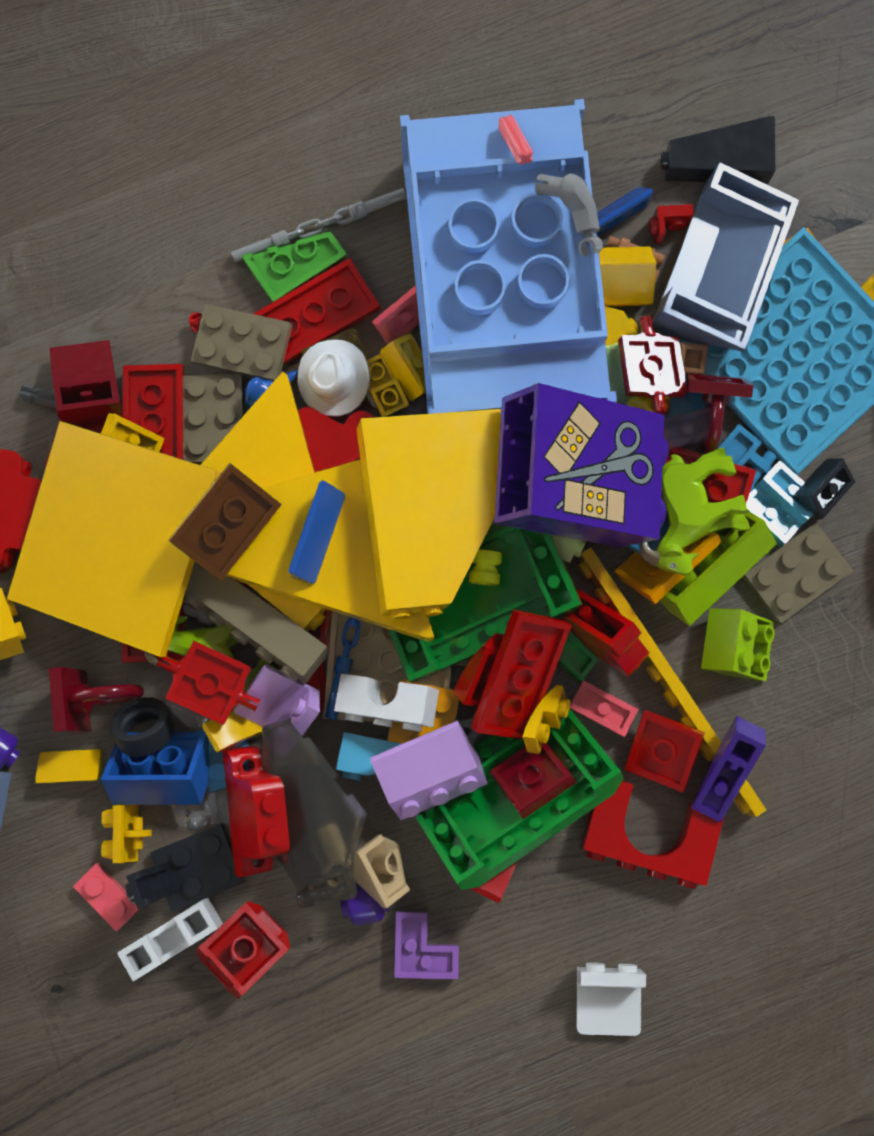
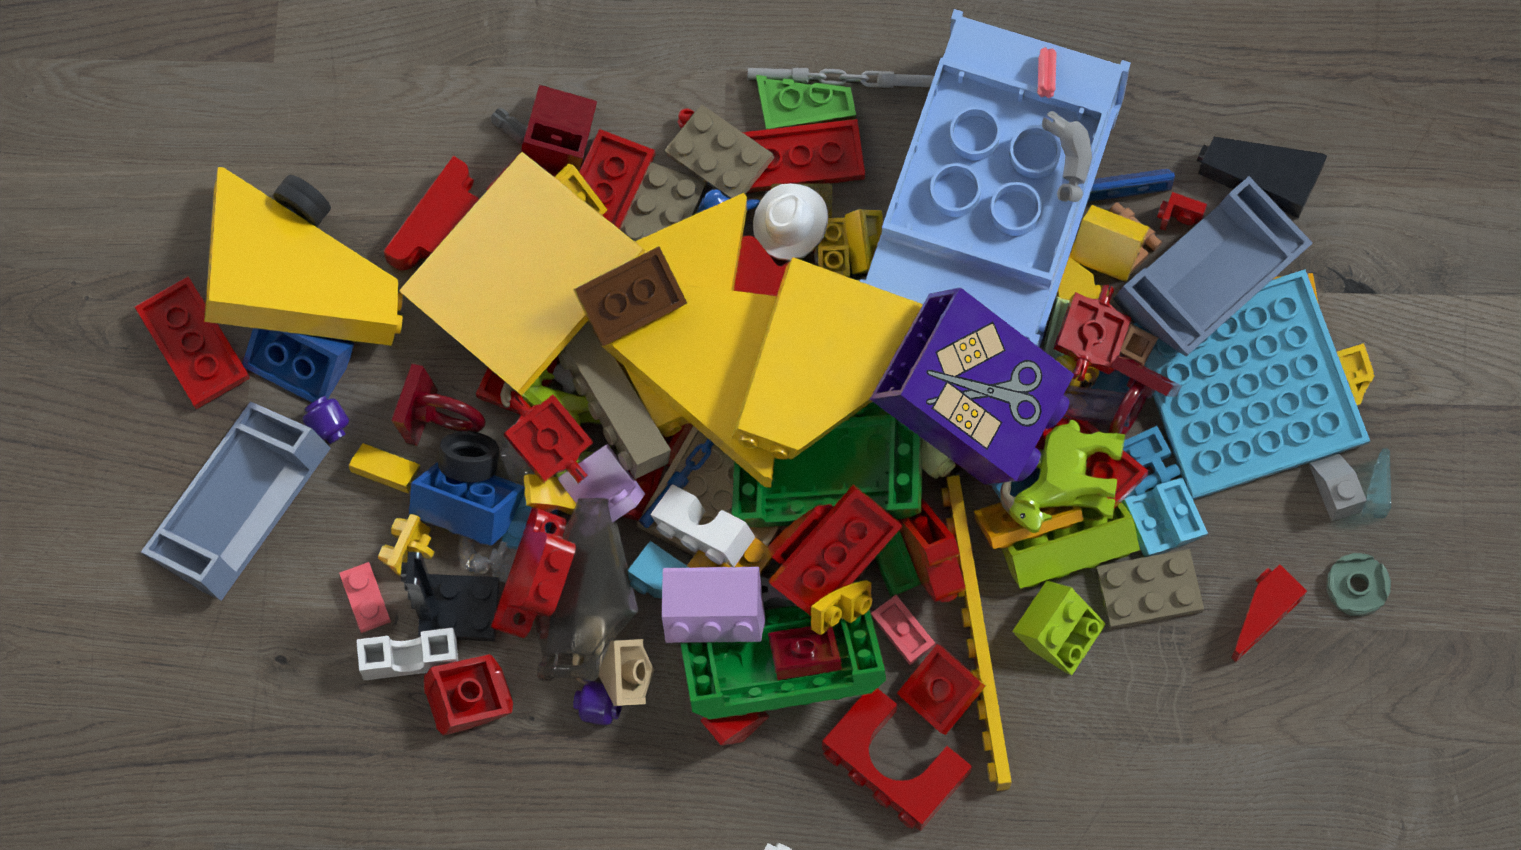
camera: 25 degrees right, 10 degrees down
(316, 533) = (707, 341): blue slope -> none
(399, 317) = (875, 193): coral plate -> none
(417, 958) = (622, 773): medium lavender plate -> none
(485, 572) = (846, 445): neon yellow wheel -> none
(730, 768) = (991, 724): dark purple slope -> none
(825, 487) = (1214, 521): black slope -> none

